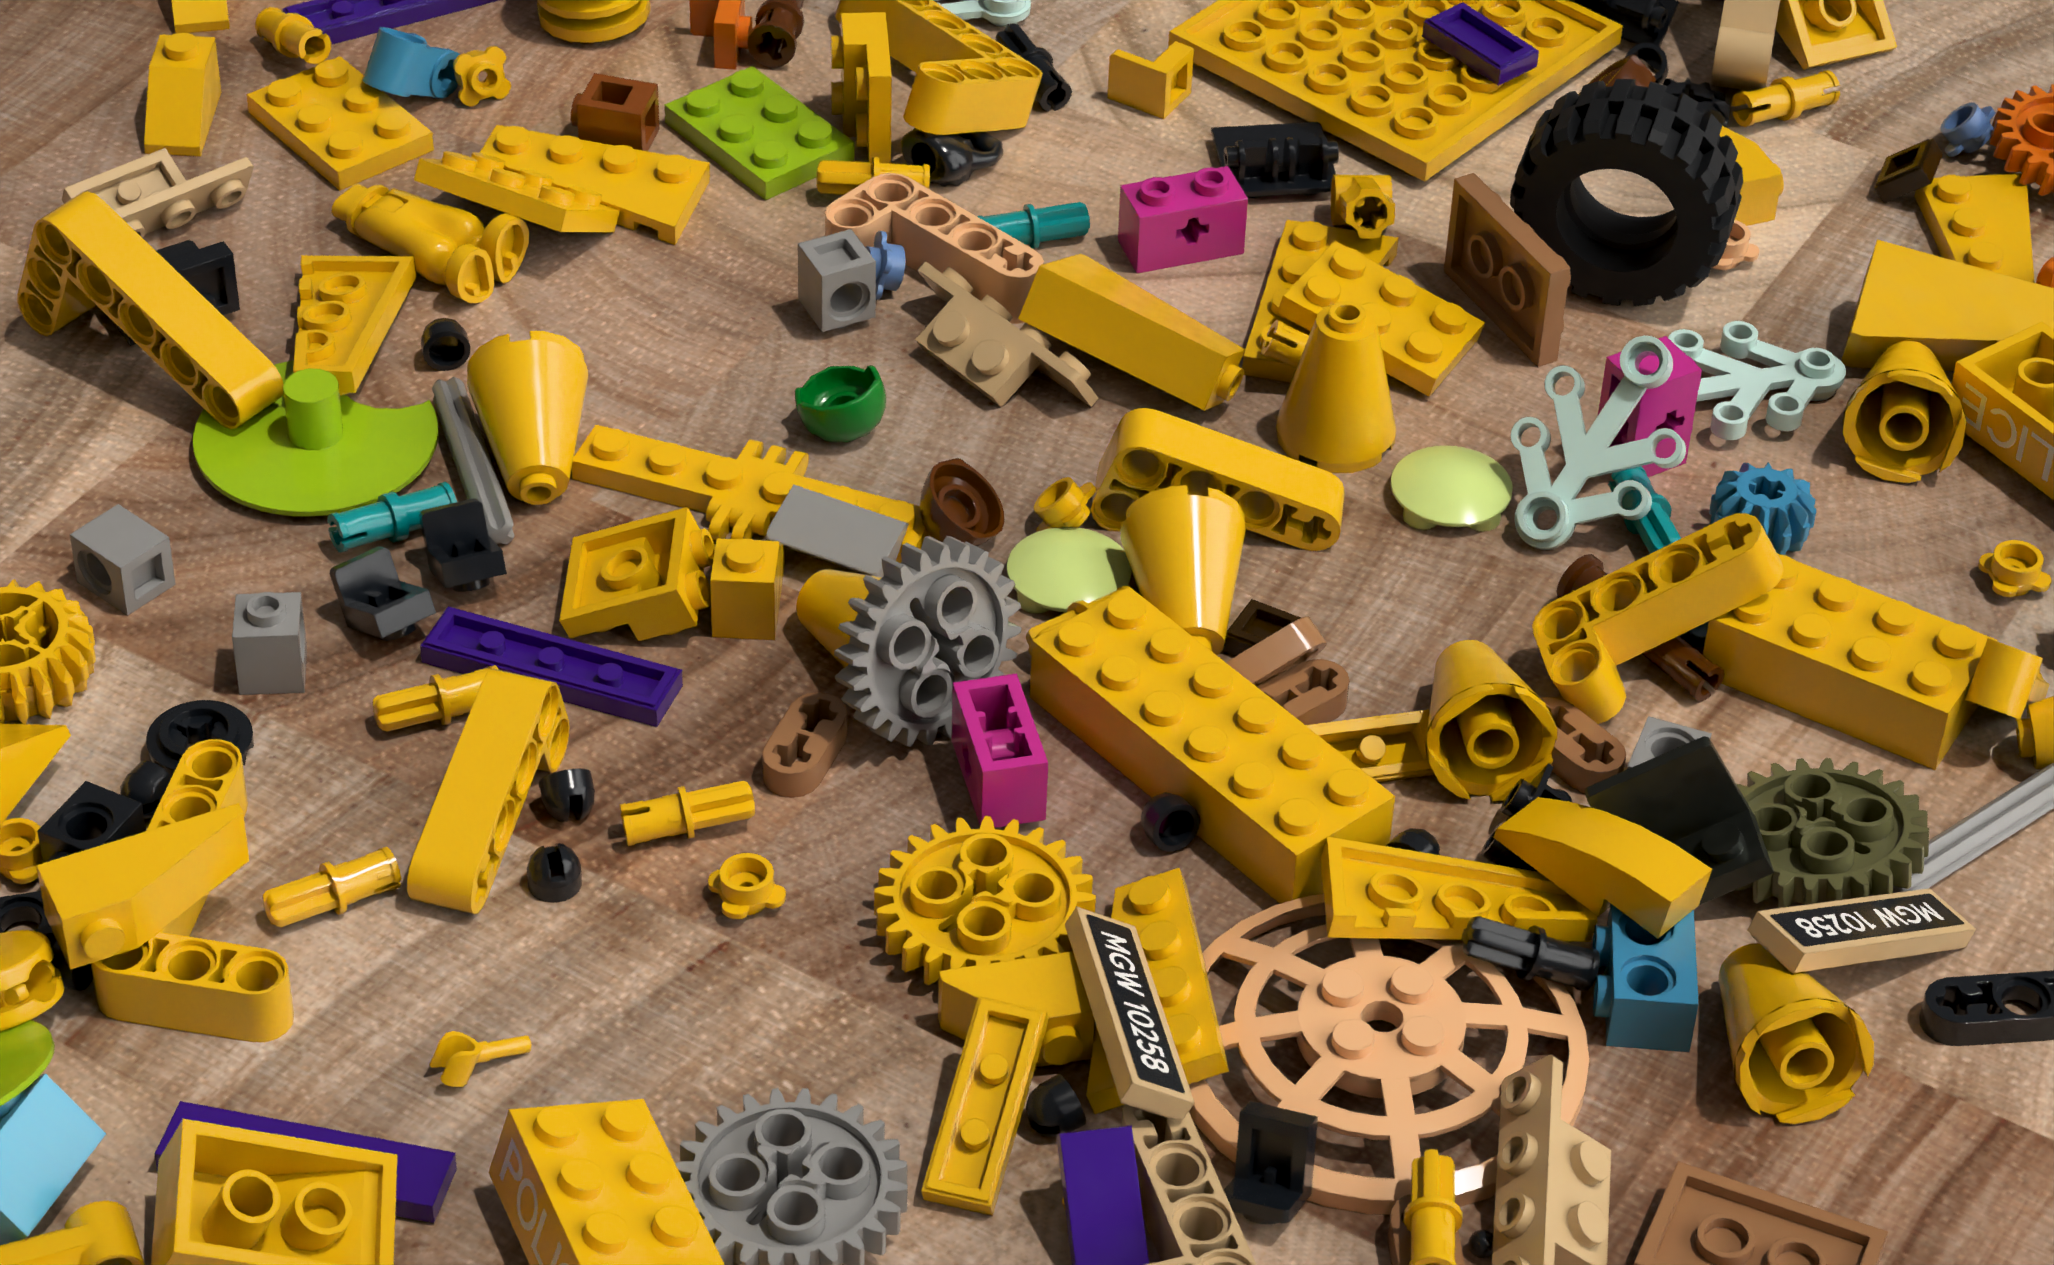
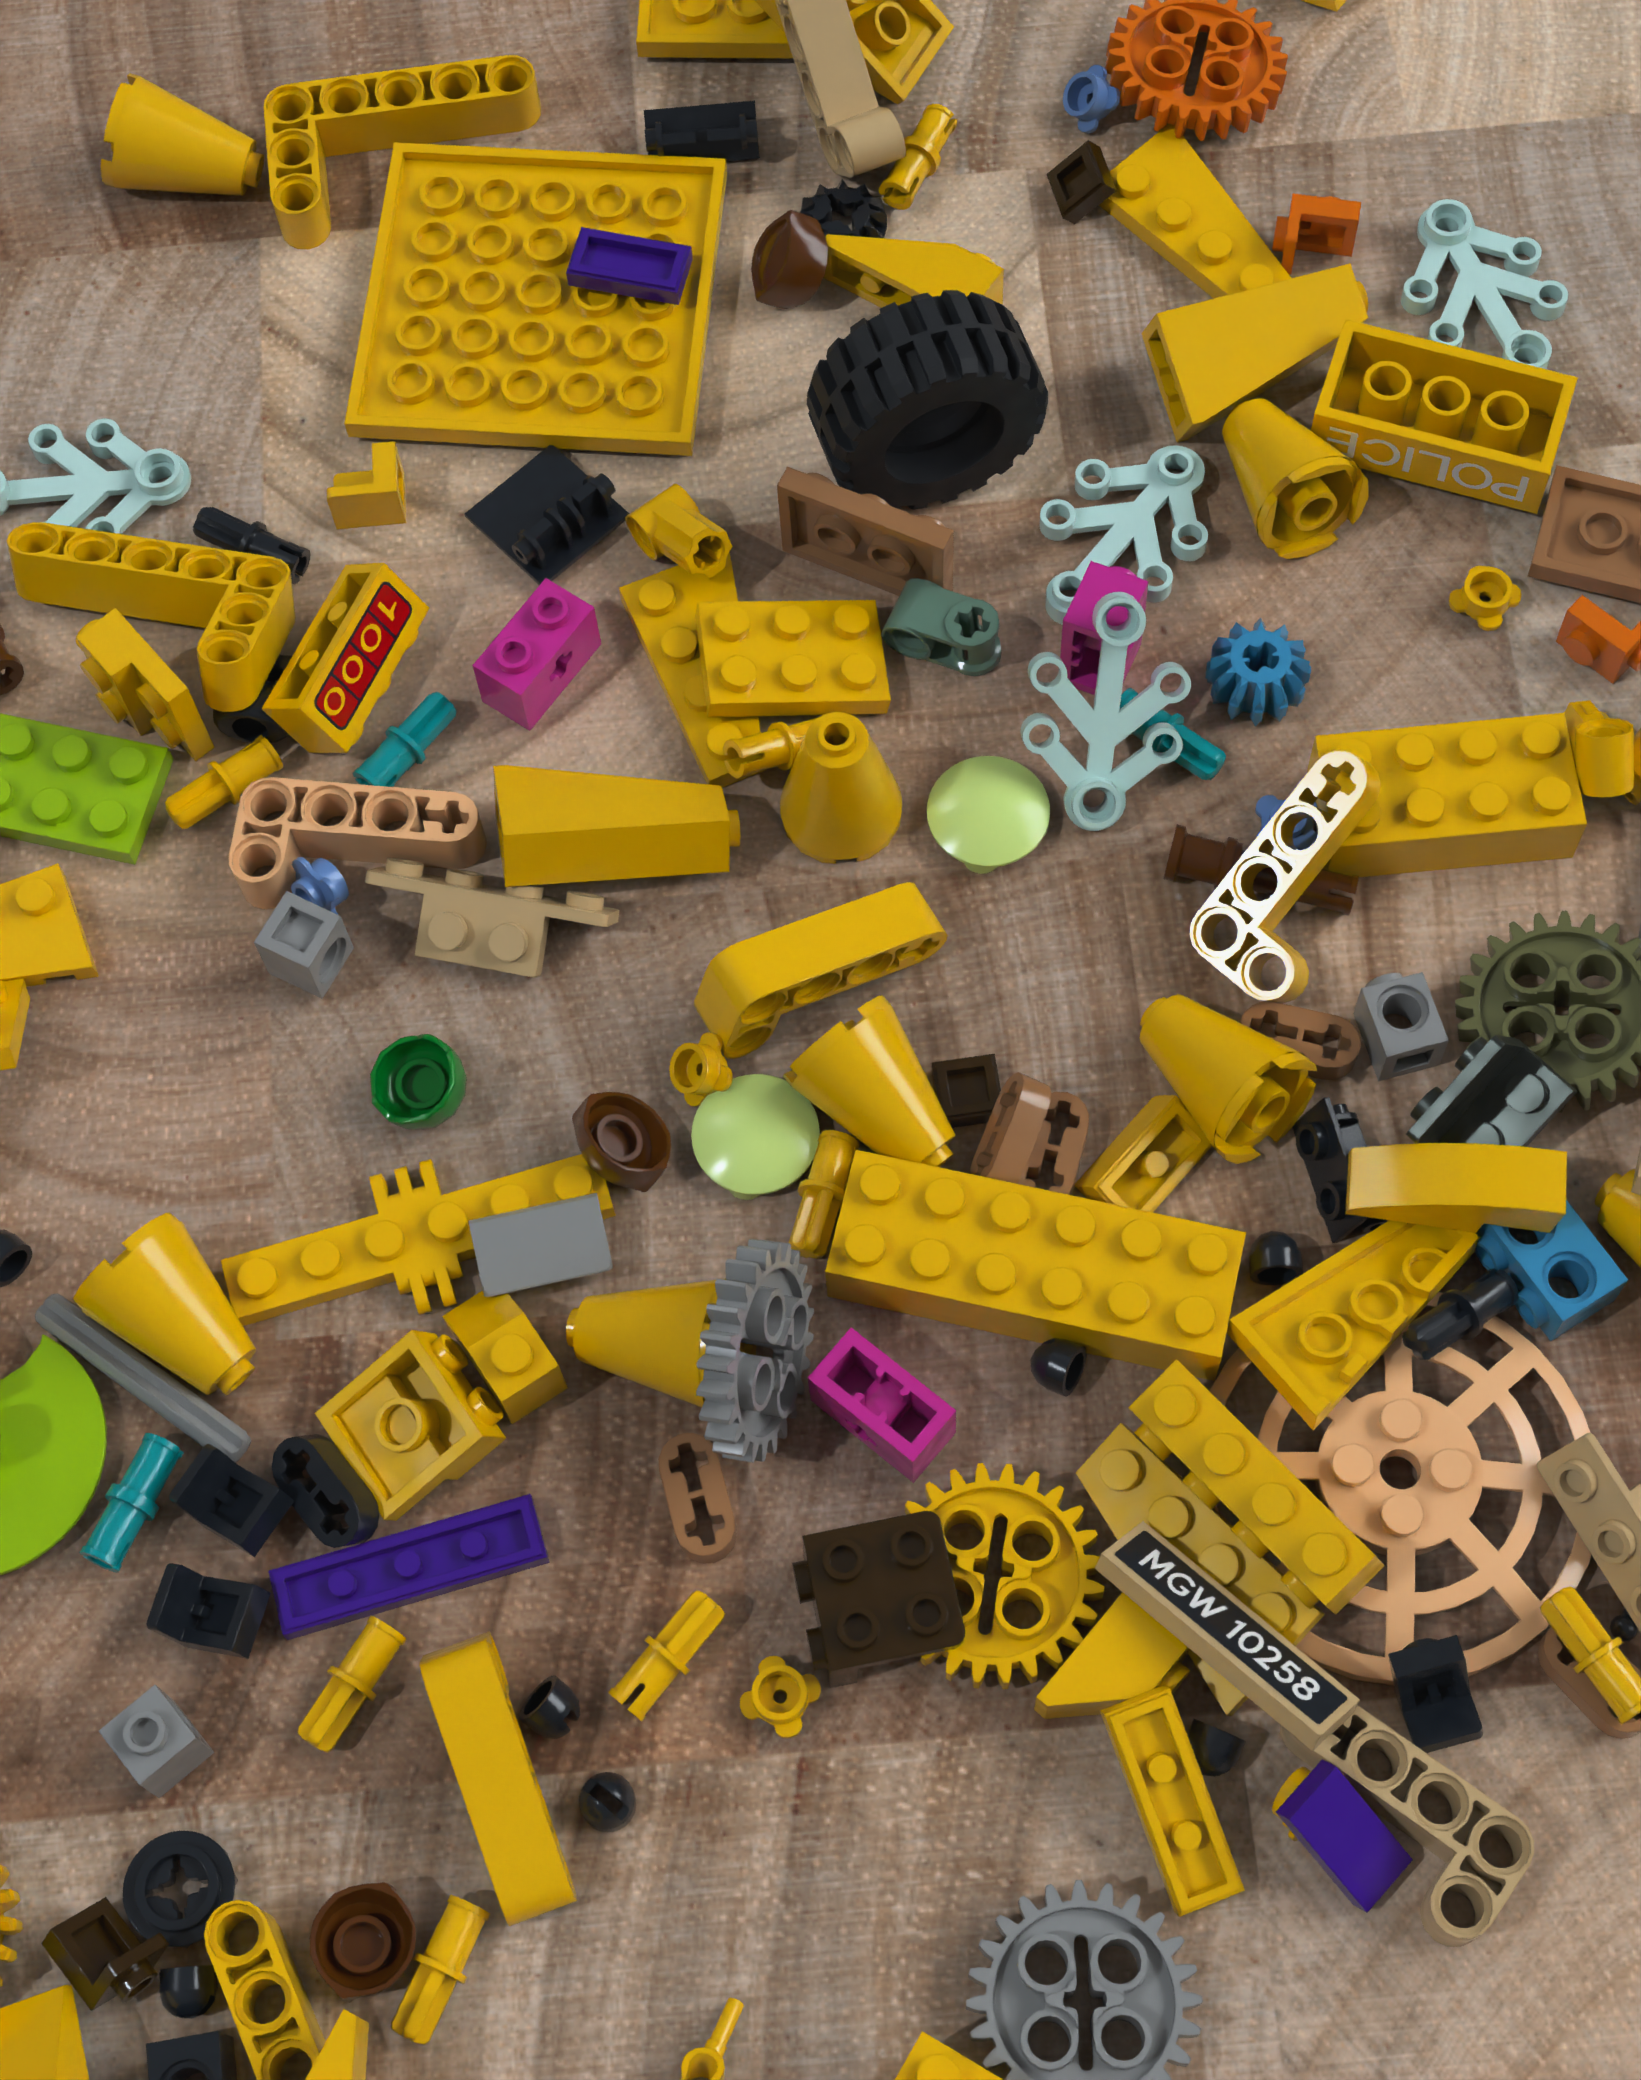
camera: 30 degrees left, 25 degrees up
(110, 734) = (103, 1955): none -> dark brown bracket
(294, 836) = (362, 1940): none -> reddish brown hat
(535, 581) = (320, 1496): none -> black beam
(878, 846) = (878, 1594): none -> dark brown bracket
(1034, 150) = (346, 658): none -> yellow brick
(1244, 946) = (1265, 1496): none -> yellow brick
(1517, 359) = (941, 625): none -> sand green piece
(1653, 58) = (779, 182): black hinge -> none

